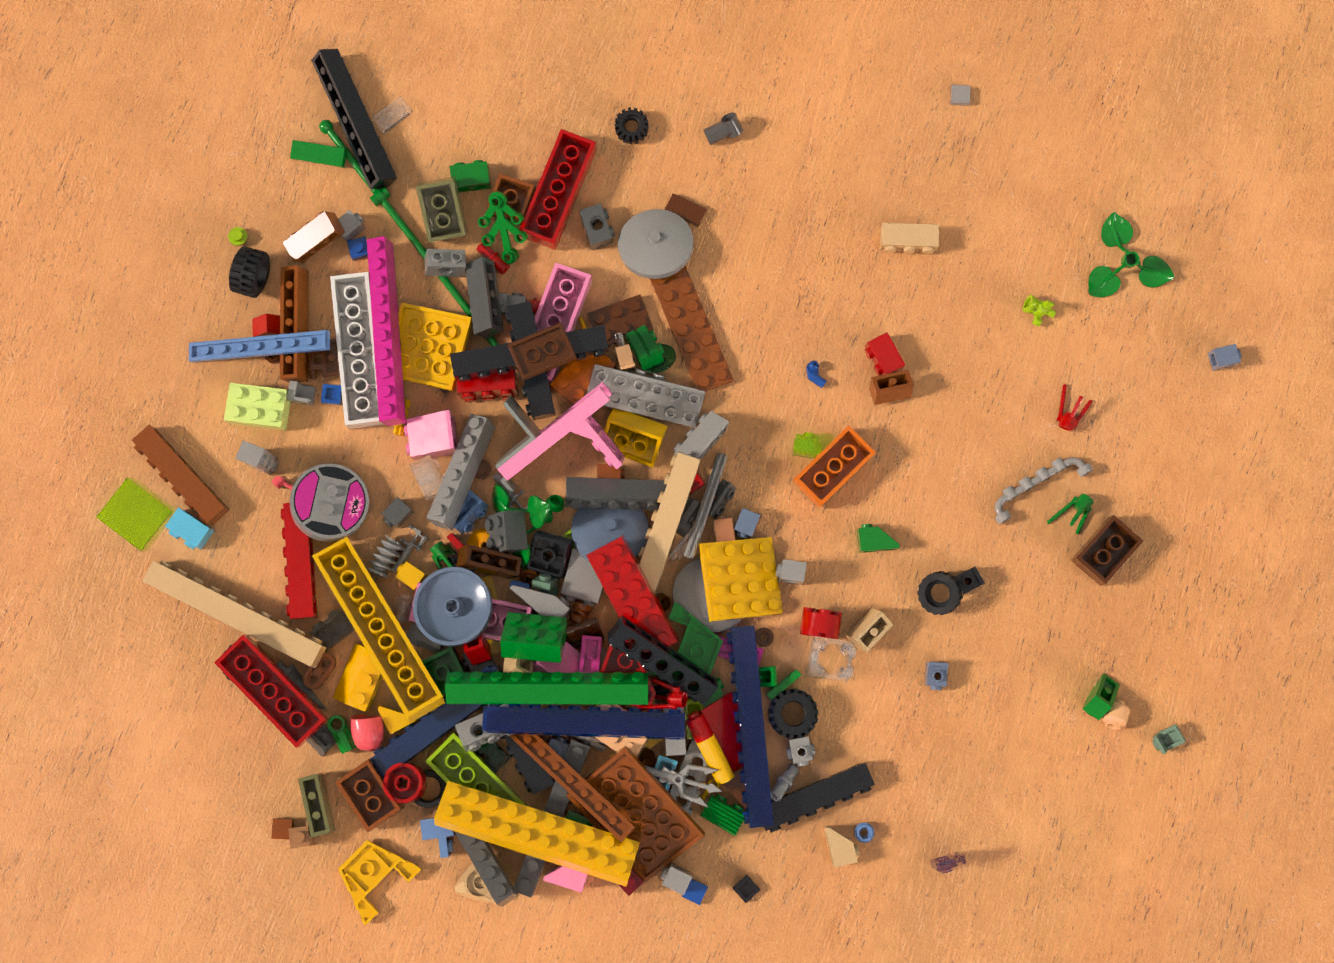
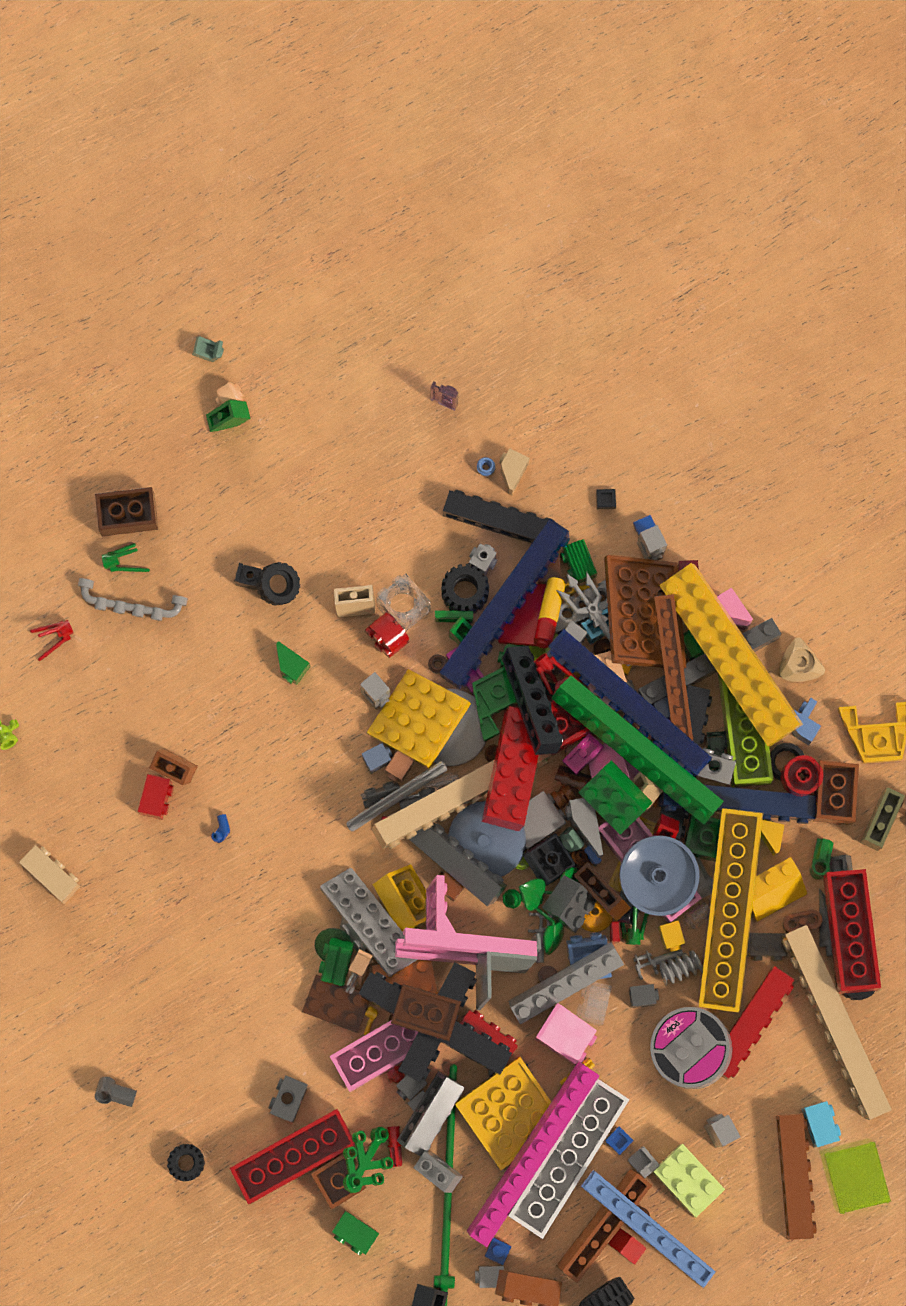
camera: 145 degrees left, 5 degrees down
(278, 481) = (718, 1104): coral hand -> none
(329, 364) = (603, 1165): reddish brown plate -> none
(367, 731) = (802, 839): coral piece -> none
(441, 209) = (403, 1219): olive brick -> none
(489, 869) = (786, 663): dark grey brick -> none
(655, 244) = (254, 1041): light grey dish -> none
(687, 210) = (204, 1052): reddish brown tile -> none
(692, 331) = (281, 961): dark orange plate -> none
(704, 436) = (354, 851): light grey slope -> none
(784, 782) = (514, 546): light grey pin -> none
(806, 445) = (278, 778): clear neon green brick -> none
(834, 467) = (272, 743): orange brick -> none
(931, 669) = (334, 536): sand blue brick -> none

